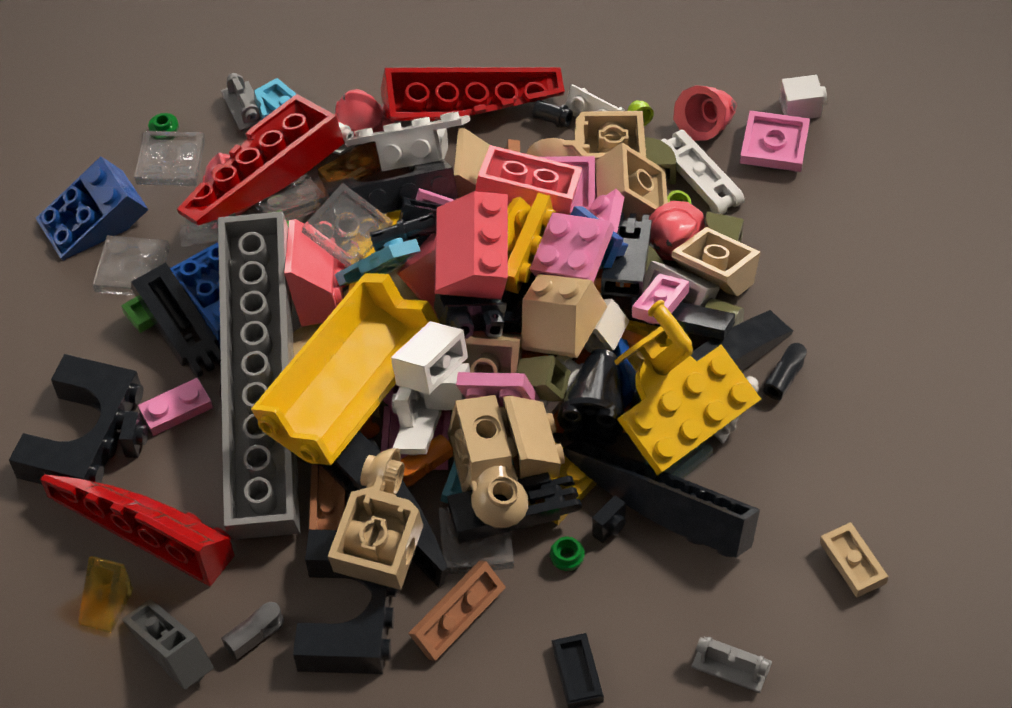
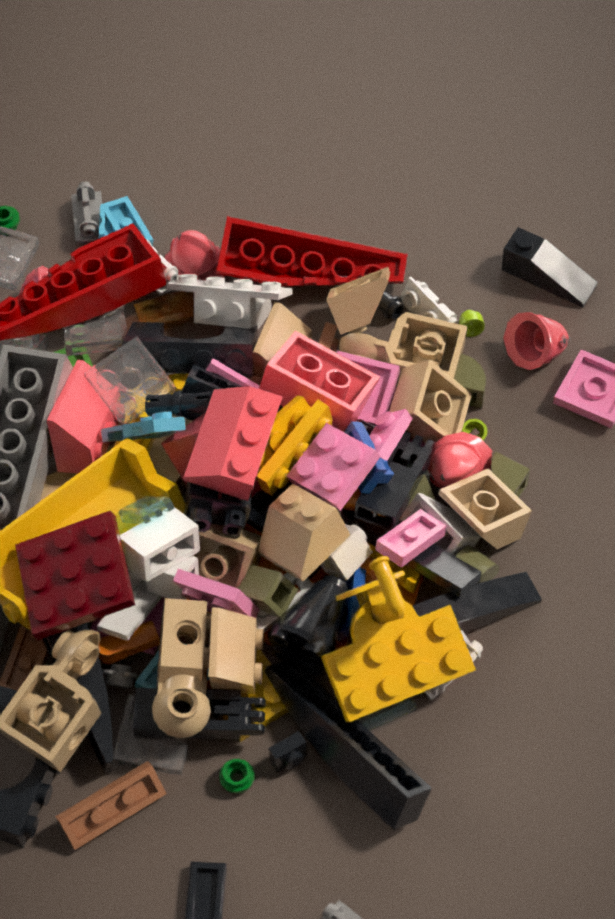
camera: 15 degrees right, 5 degrees up
(360, 402) = (74, 575): none -> dark red plate
(406, 330) = (150, 508): none -> clear light blue tile
(425, 494) = (119, 676): none -> light grey plate
(534, 113) = (357, 301): none -> tan slope
(688, 49) = (546, 267): none -> black slope
(704, 174) = (510, 405): white plate -> none
(785, 371) = (517, 642): black bar -> none
(854, 559) = (513, 862): tan plate -> none

